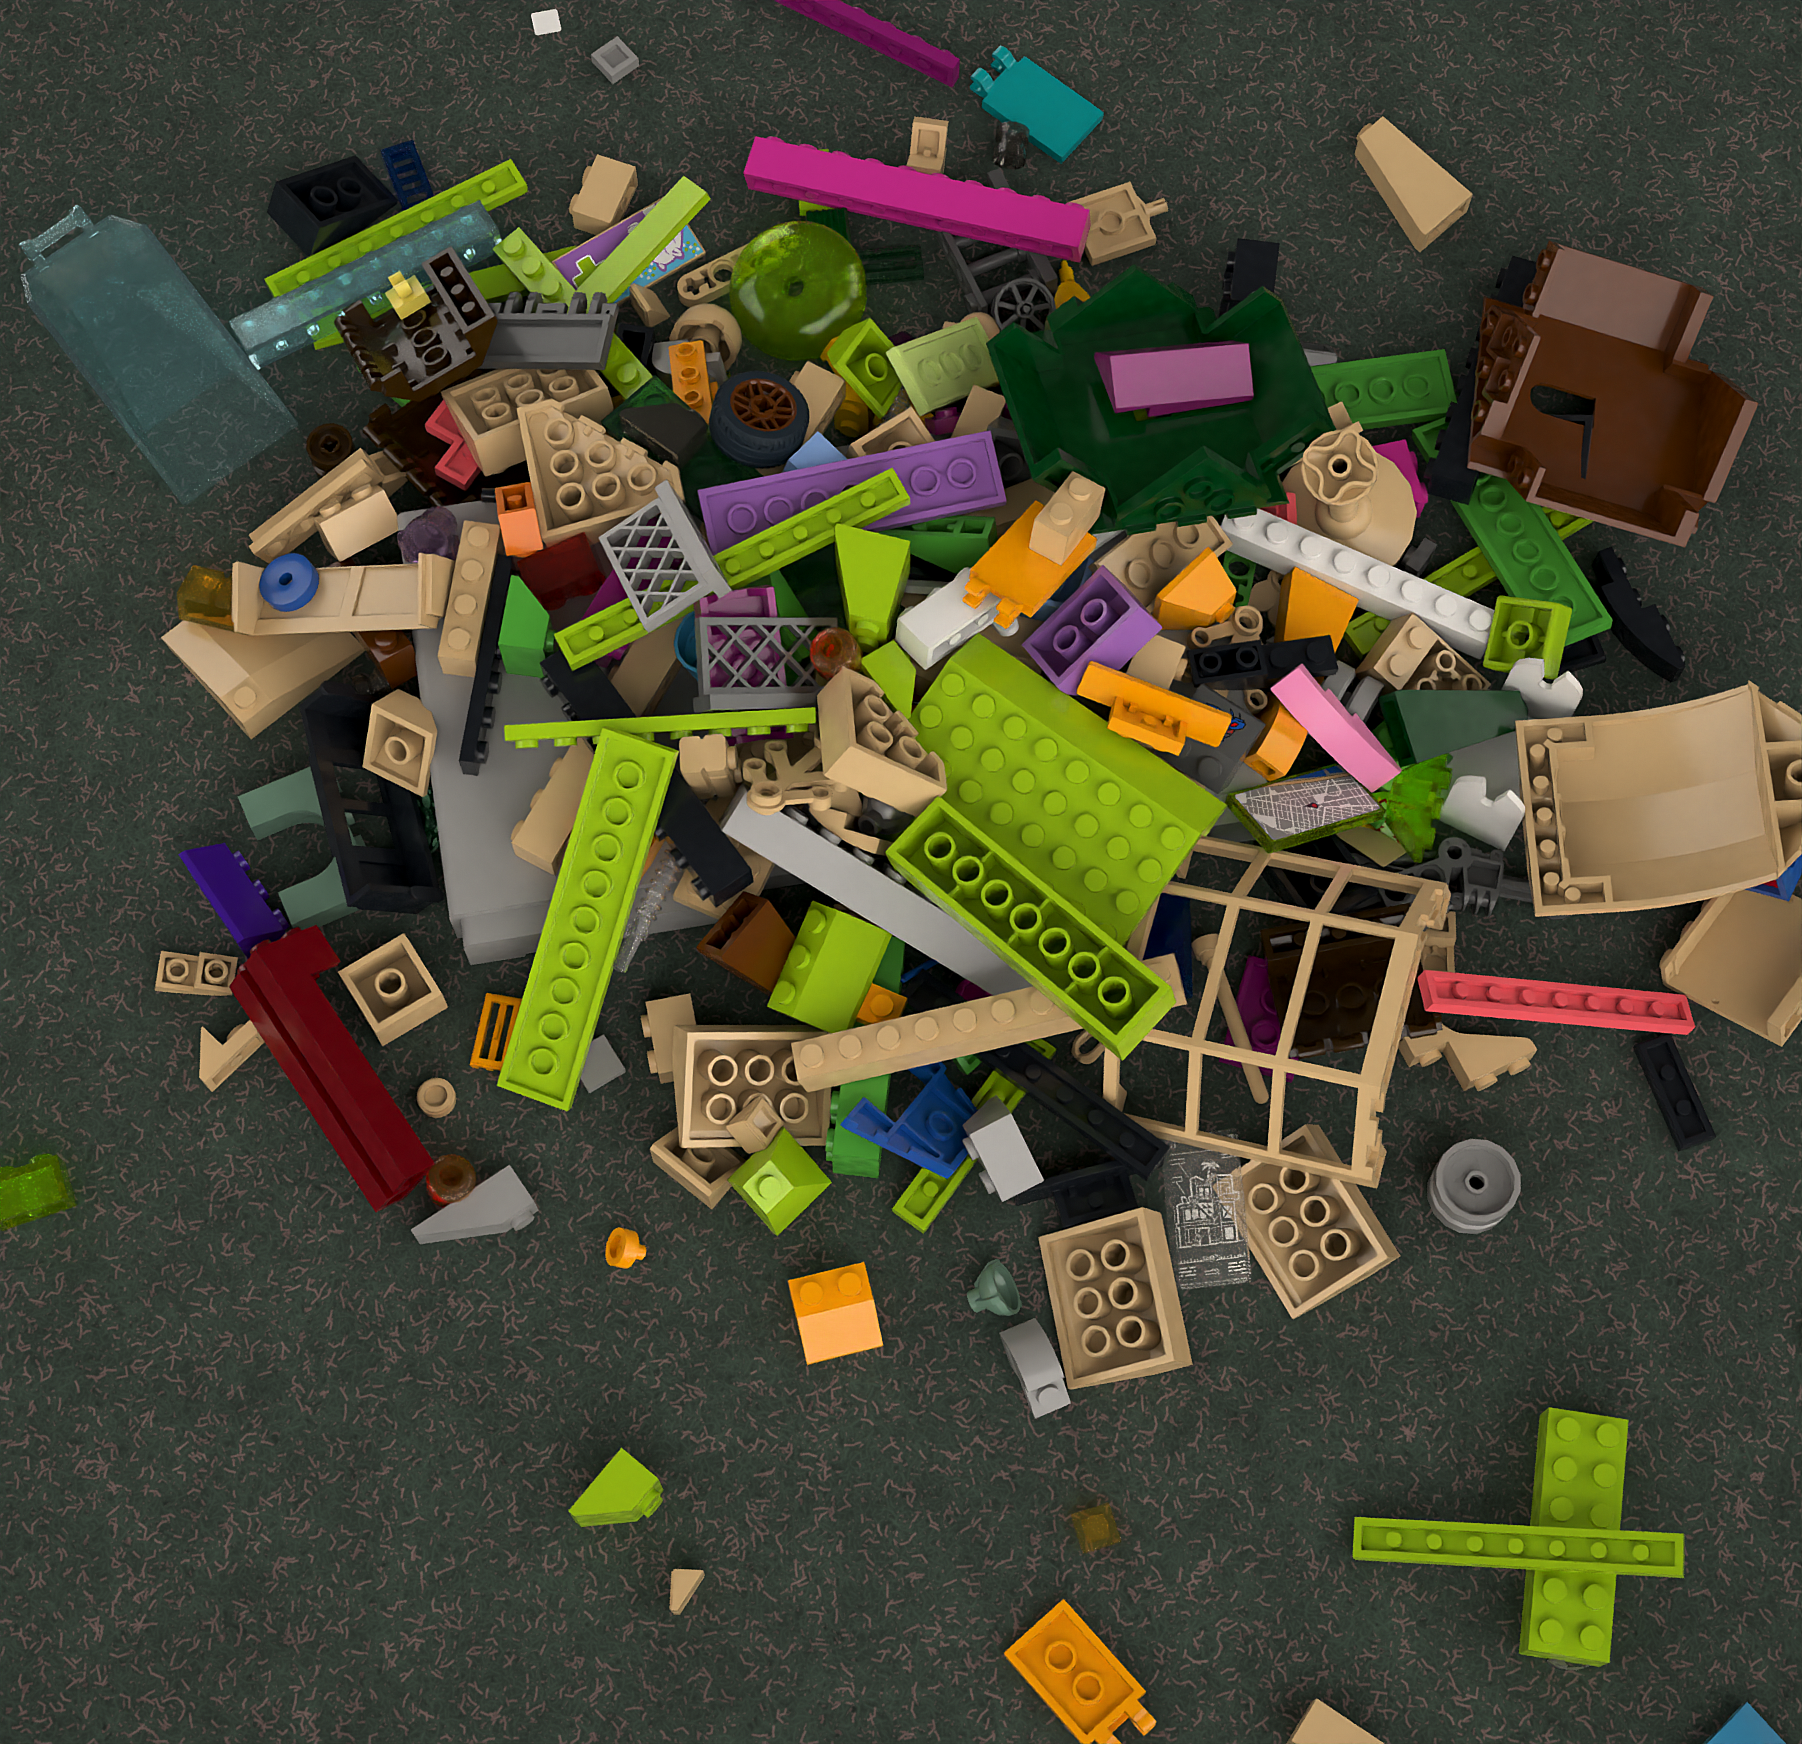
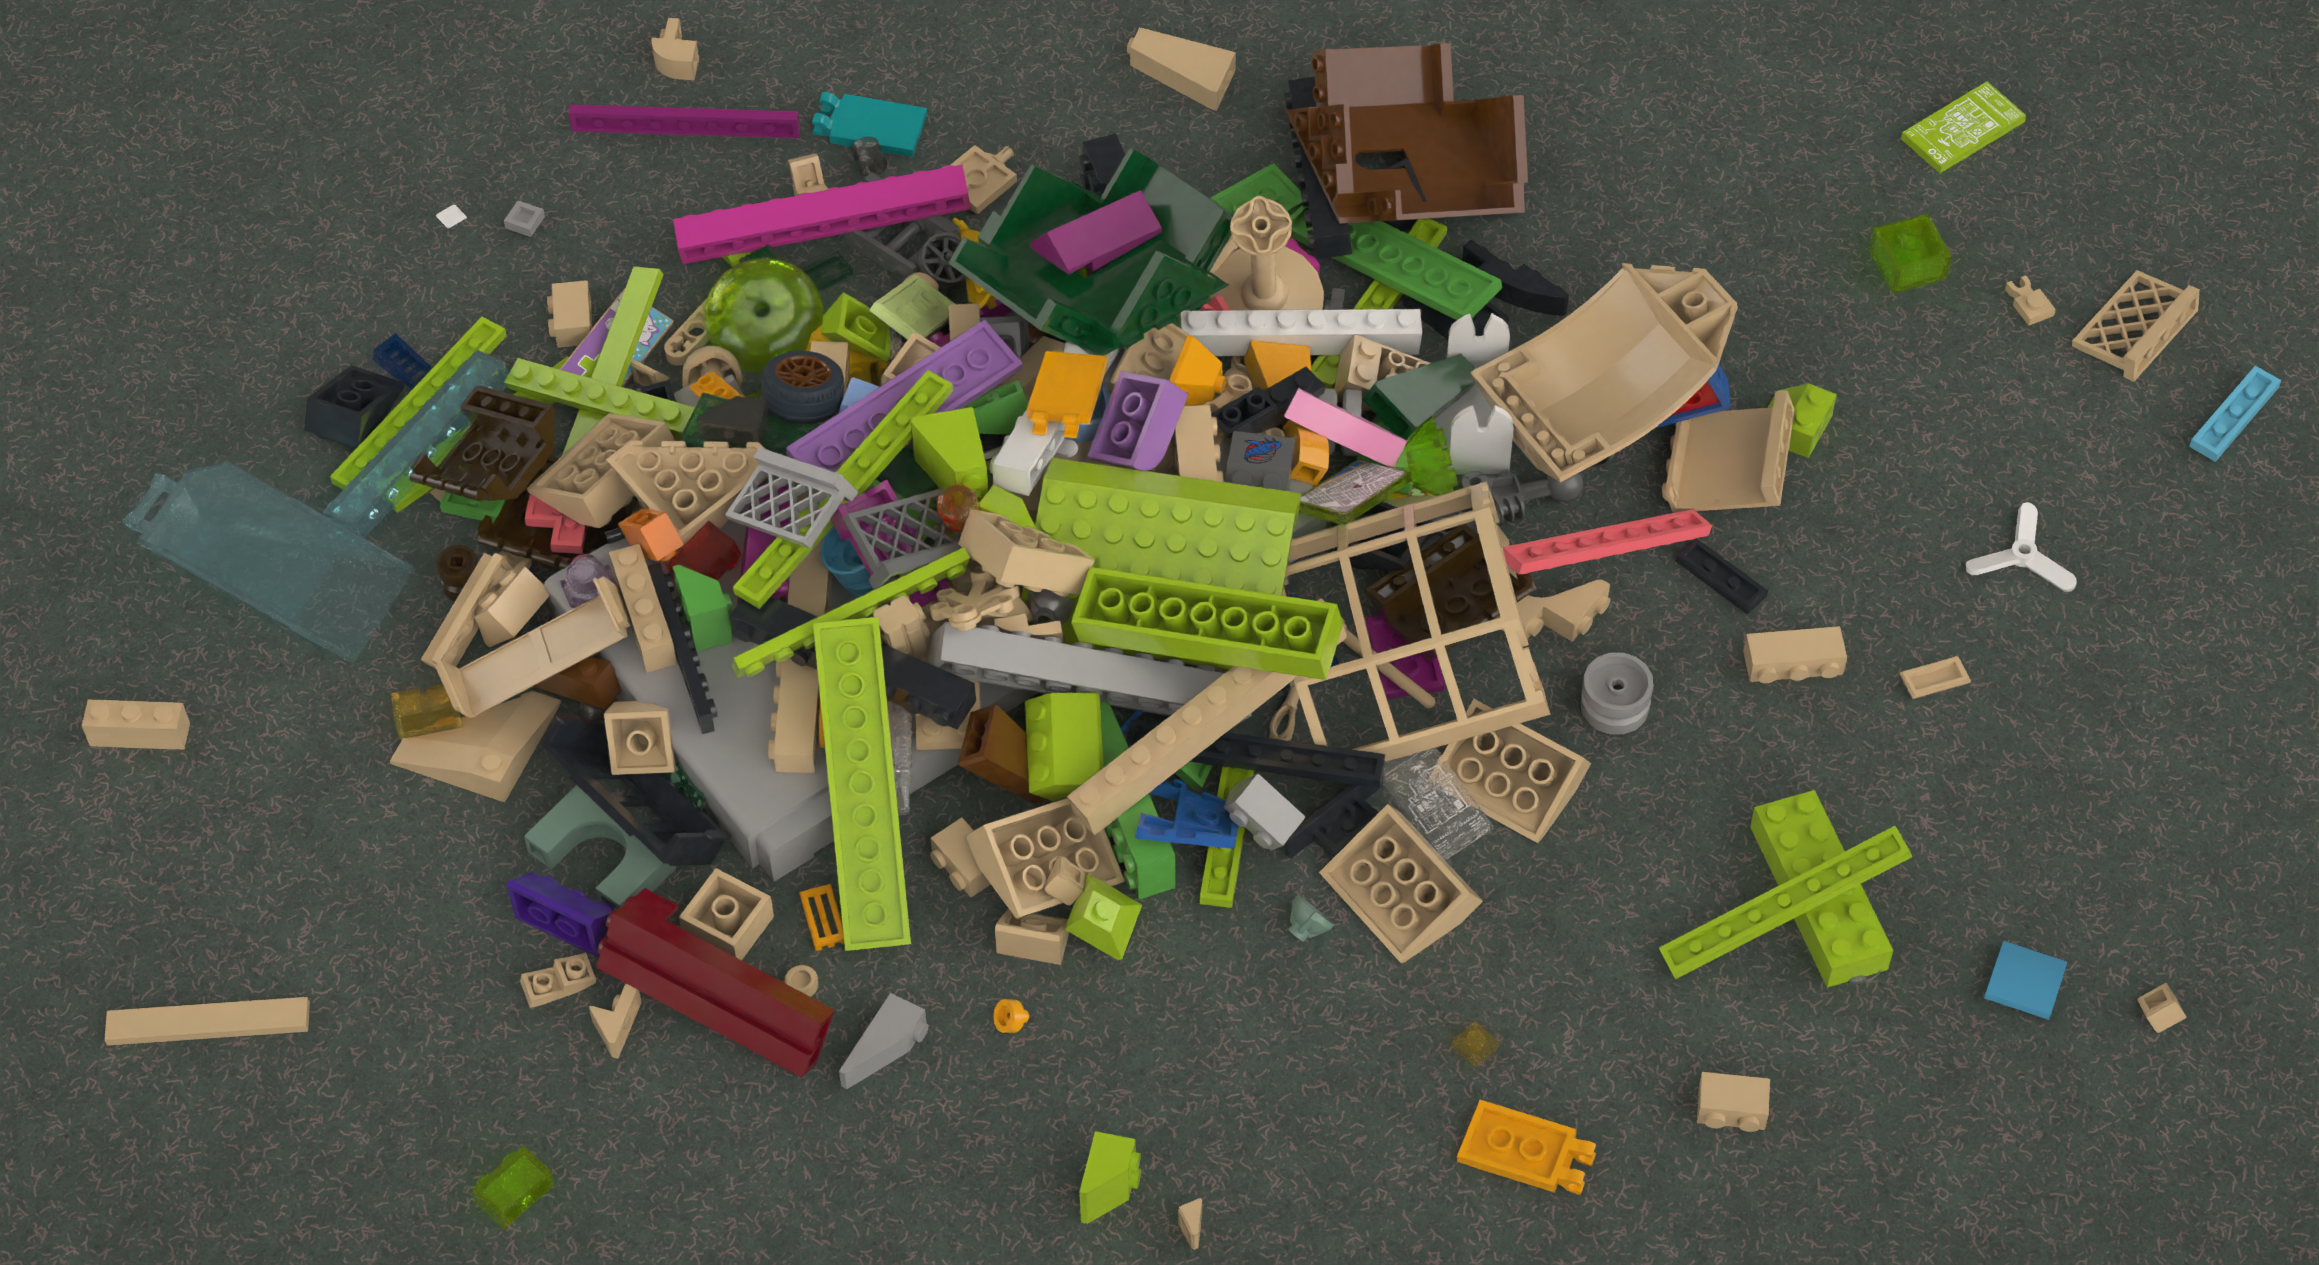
camera: 25 degrees left, 15 degrees down
(298, 592) = (492, 672): blue piece -> none
(406, 295) = (456, 437): light yellow tile -> none
(447, 1169) = (848, 1026): clear orange head -> none
(549, 336) = (599, 412): dark grey hinge -> none
(600, 1065) = (919, 903): light grey piece -> none
(835, 1313) = (1197, 986): light orange slope -> none
(881, 1006) = (1115, 745): light orange plate -> none
(1036, 1367) = (1371, 948): light grey brick -> none
(1066, 518) = (1078, 347): tan brick -> none
(1152, 712) = (1210, 453): light orange bracket -> none
(1517, 617) = (1433, 305): lime brick -> none
(1702, 1233) = (1795, 654): none -> tan brick

